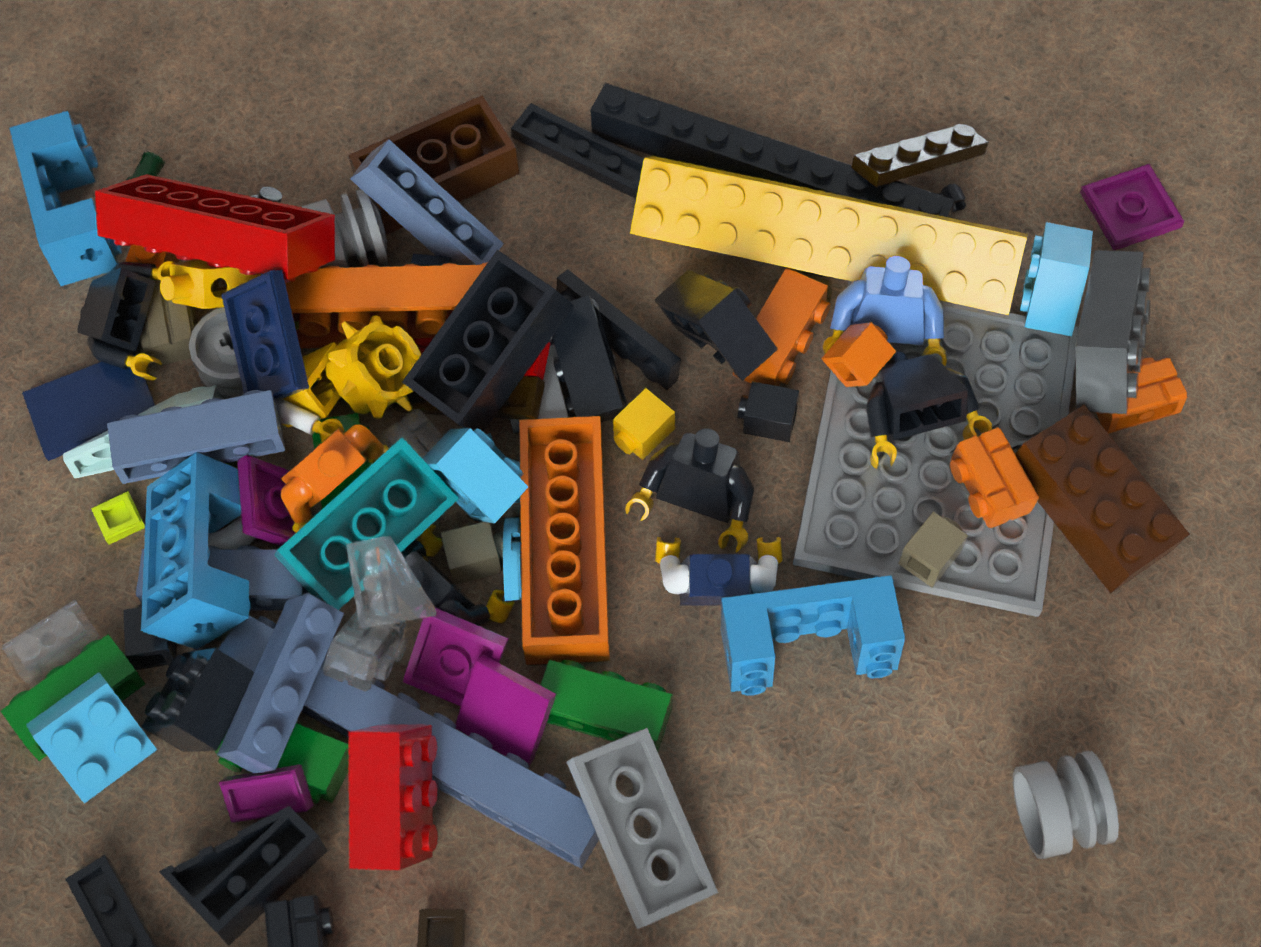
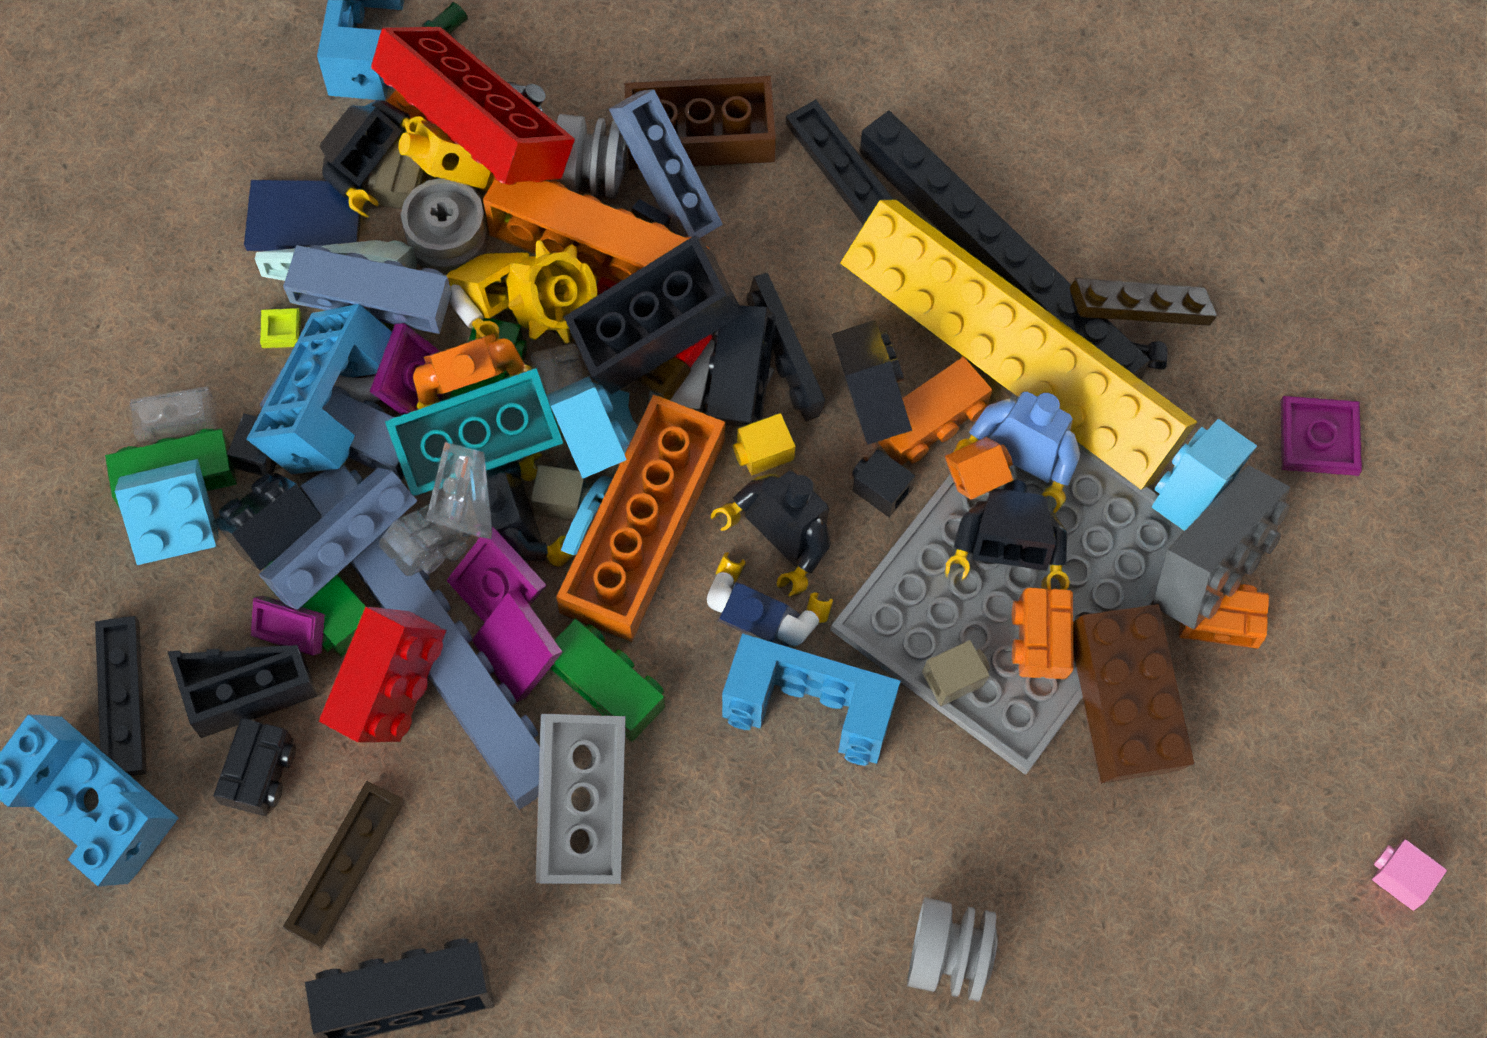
camera: 20 degrees right, 5 degrees up
(265, 336) = (465, 225): dark blue tile -> none

